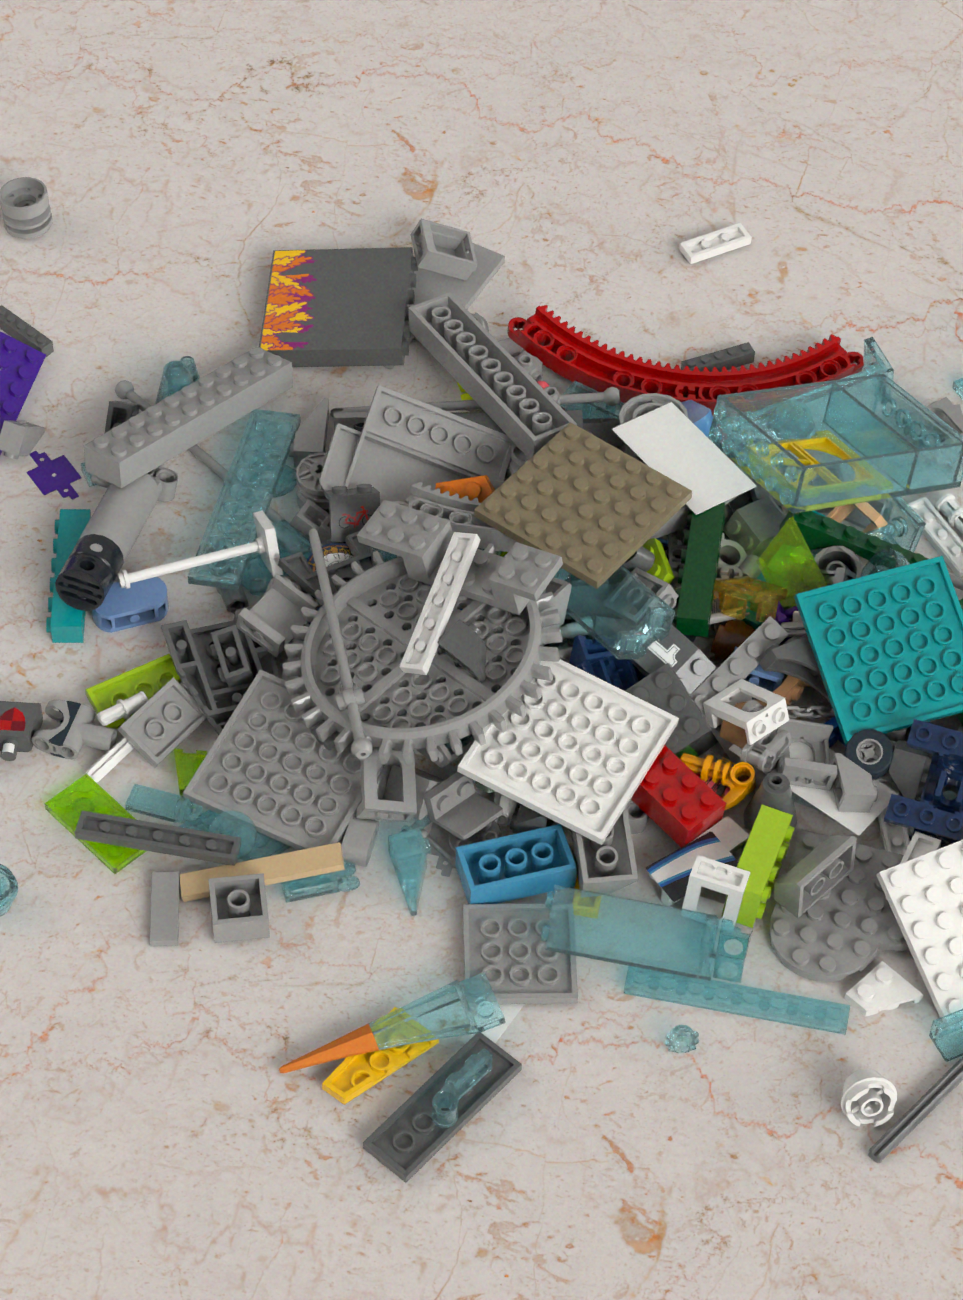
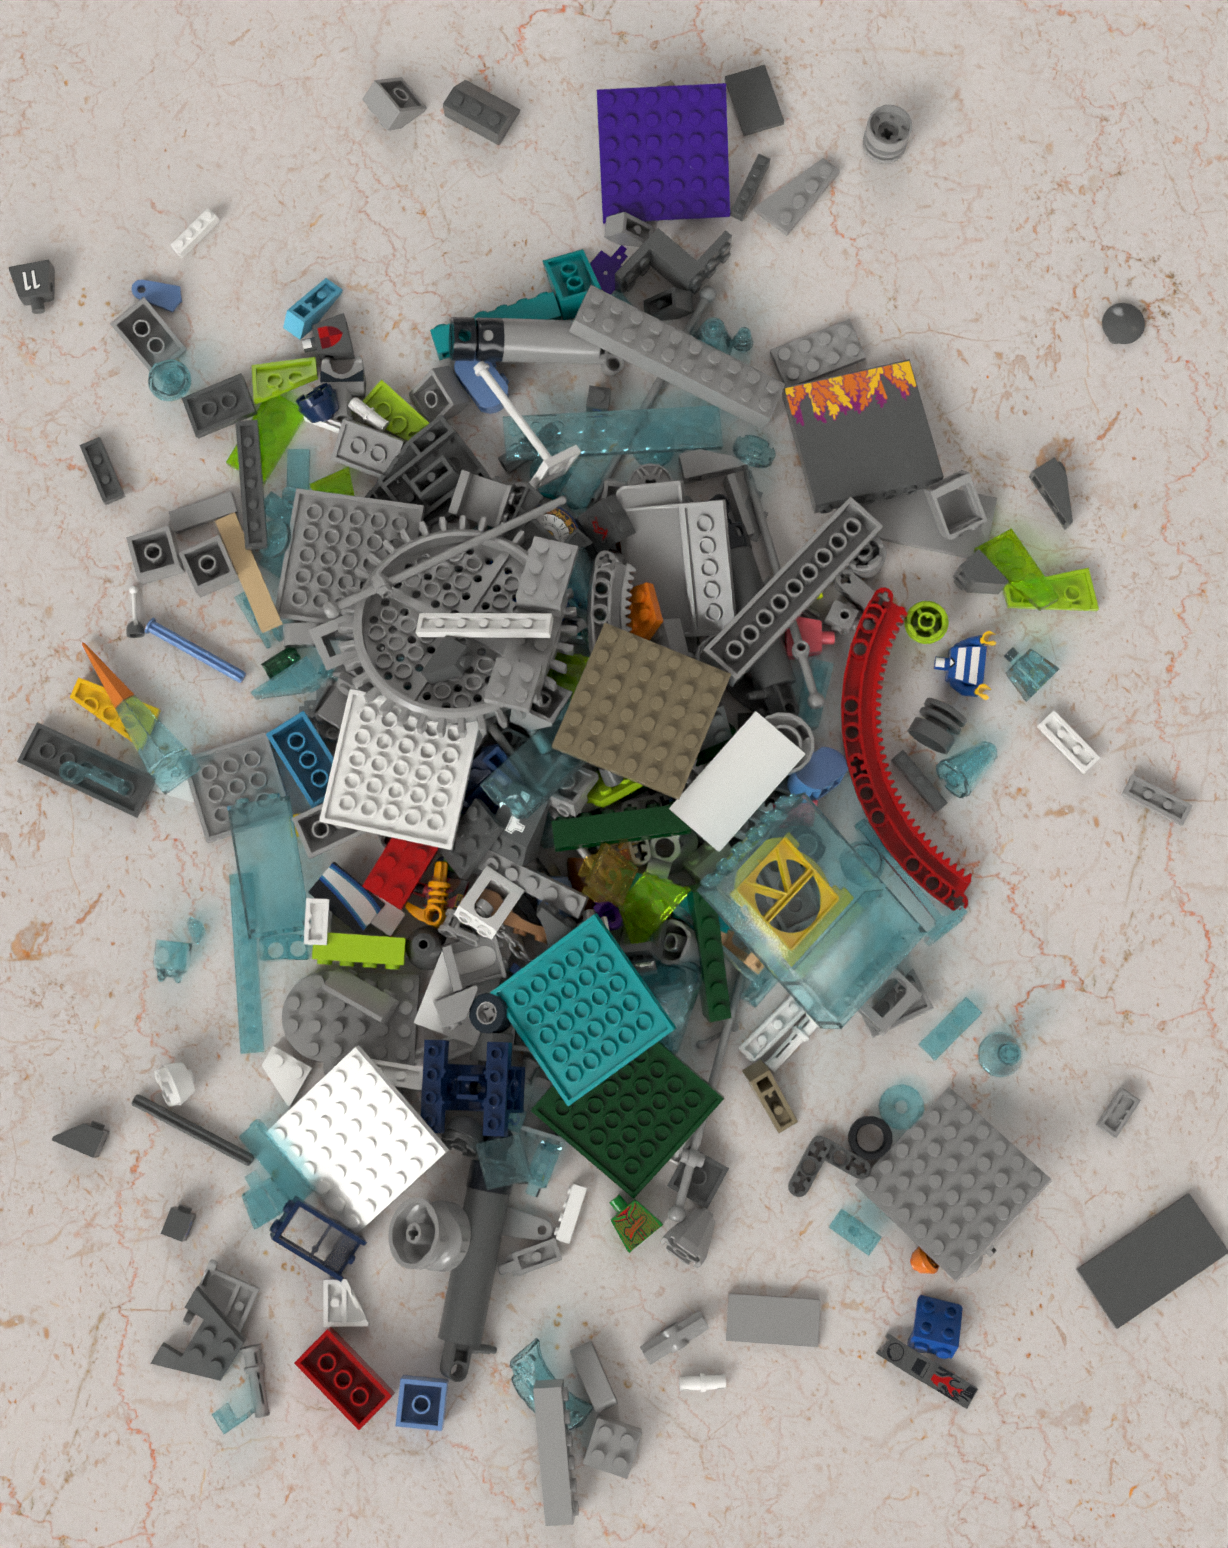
camera: 75 degrees right, 30 degrees up
(35, 786) = (282, 376): none -> lime wing
(42, 854) = (219, 405): none -> dark grey plate
(44, 496) = (570, 279): none -> teal slope
(51, 300) = (794, 199): none -> light grey wing
(67, 997) = (102, 471): none -> dark grey plate
(77, 402) = (673, 262): none -> dark grey bracket
(91, 743) = (319, 403): none -> dark blue cone
(128, 644) = (439, 394): none -> light grey slope
(199, 506) = (598, 399): none -> dark grey brick
(201, 960) = (155, 555): none -> light grey brick
(229, 324) = (818, 354): none -> light grey plate
(282, 1011) = (134, 628): none -> hinge
(305, 103) = (1123, 323): none -> dark grey dish
(312, 396) = (754, 451): none -> clear light blue tile
(333, 957) = (195, 650): none -> medium blue axle
(386, 874) = (281, 661): none -> clear green piece
(455, 187) = (1053, 486): none -> dark grey slope
(521, 255) = (979, 575): none -> dark grey slope
(523, 229) = (1019, 569): none -> clear neon green wing
(558, 215) = (1072, 587): none -> lime wing
(560, 300) = (926, 622): none -> lime cone
(612, 294) = (967, 665): none -> blue torso
(634, 252) = (1028, 671): none -> clear light blue torso
(667, 324) = (938, 723): none -> dark grey wheel
(712, 1063) = (171, 959): none -> clear light blue piece
(720, 319) = (966, 768): none -> clear light blue cone
(795, 197) = (1156, 800): none -> light grey plate
(911, 1218) = (84, 1138): none -> dark grey slope

